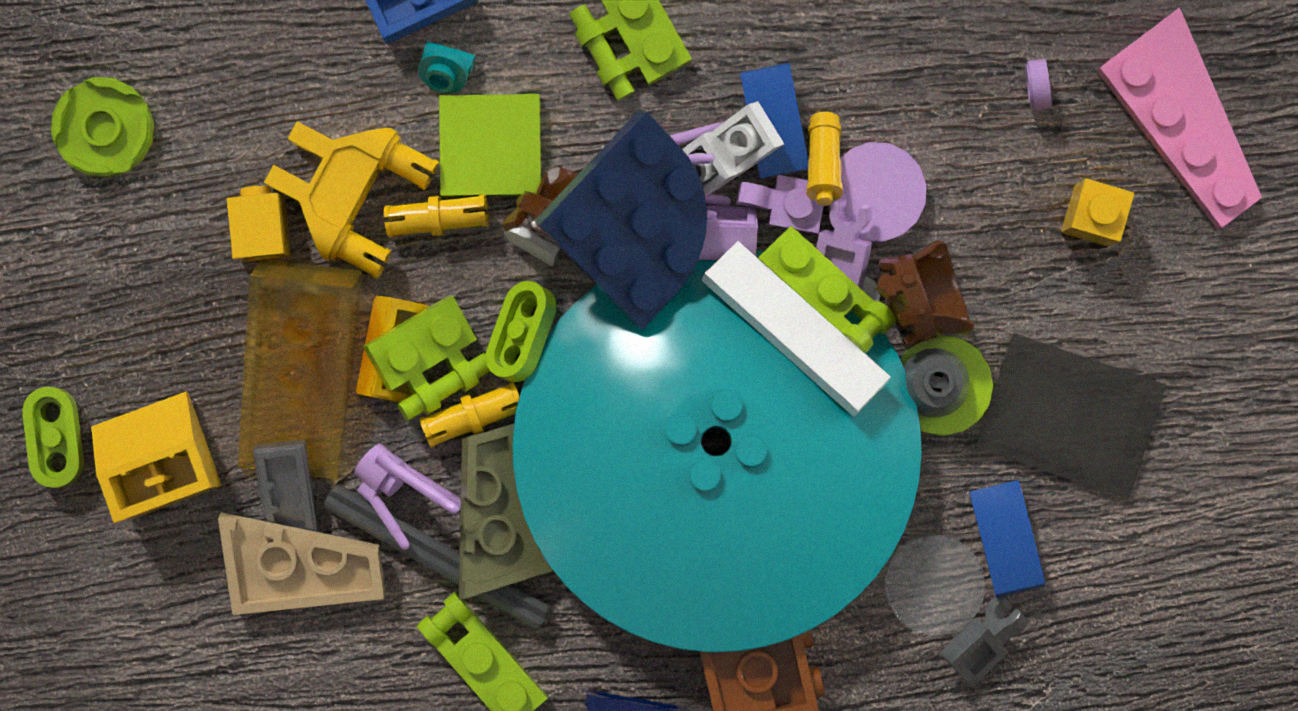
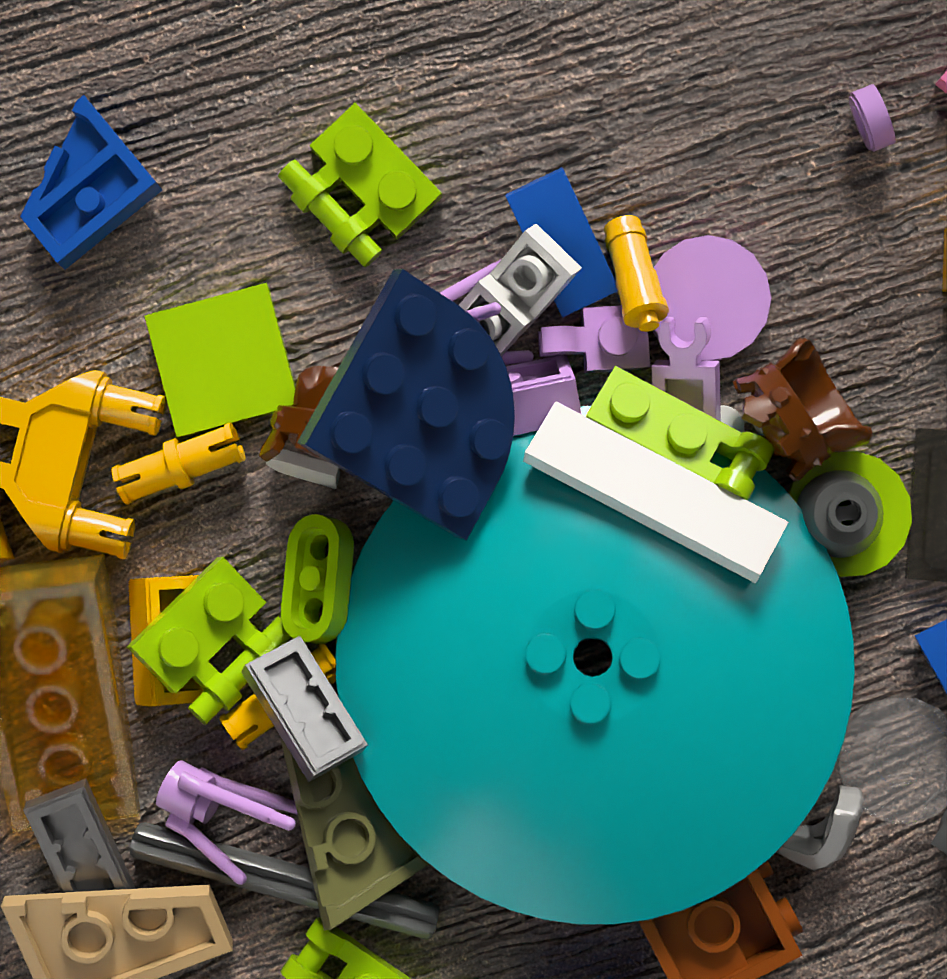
camera: 15 degrees left, 0 degrees up
(445, 67) = (143, 280): teal plate -> none
(486, 426) = (304, 708): none -> plate
(859, 633) = (827, 841): none -> light grey hair

